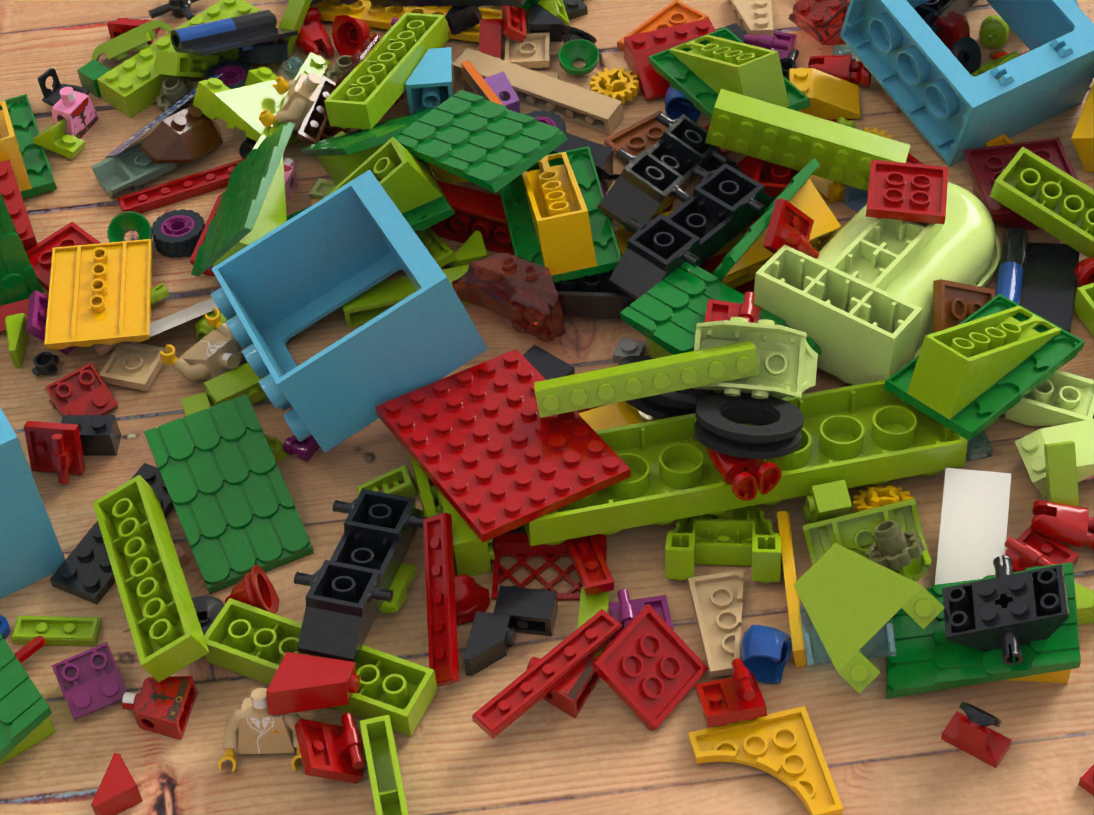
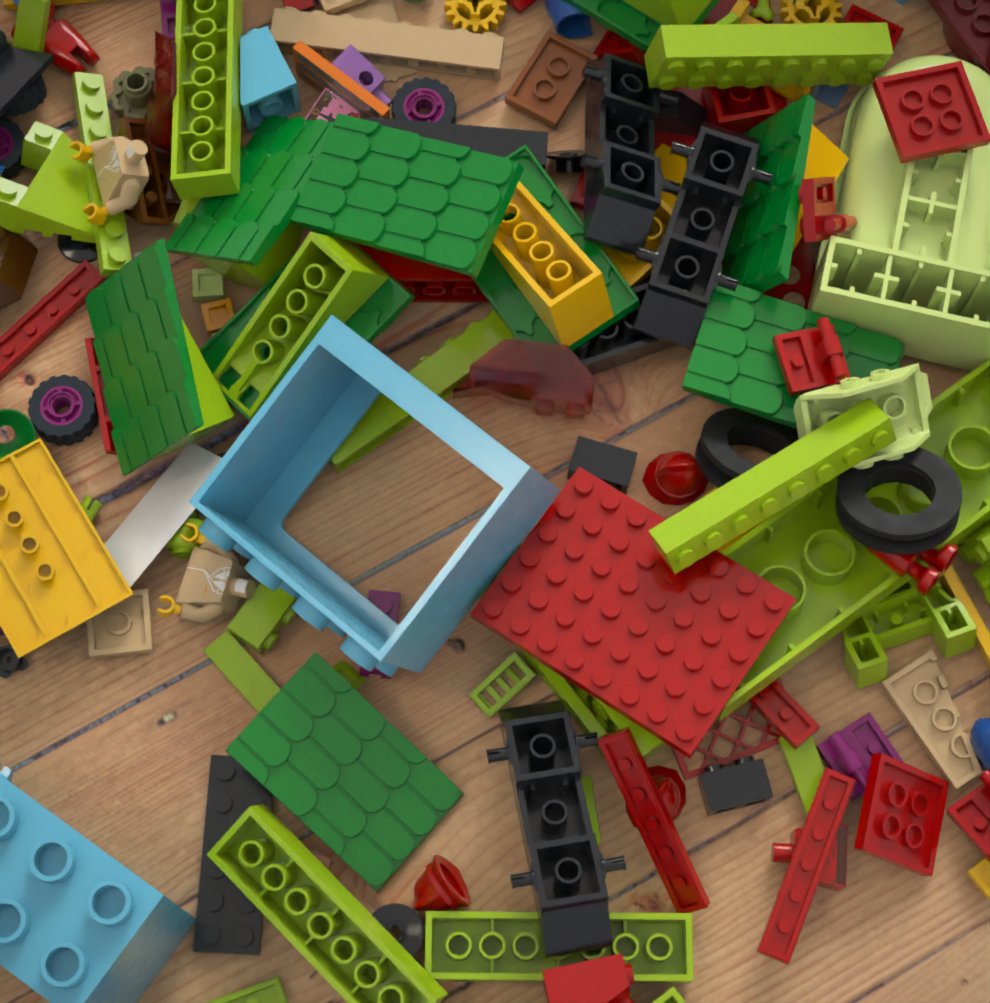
camera: 30 degrees left, 25 degrees up
(55, 448) = (105, 784): red plate -> none
(81, 393) = (87, 696): red plate -> none
(98, 433) = (127, 744): black brick -> none
(292, 66) = (59, 96): clear light blue plate -> none
(349, 34) = (112, 30): red piece -> none
(436, 247) = (402, 343): lime tile -> none
(470, 251) = (438, 325): lime slope -> none
(488, 641) = (714, 839): black slope -> none
(628, 347) = (673, 398): light grey plate -> none

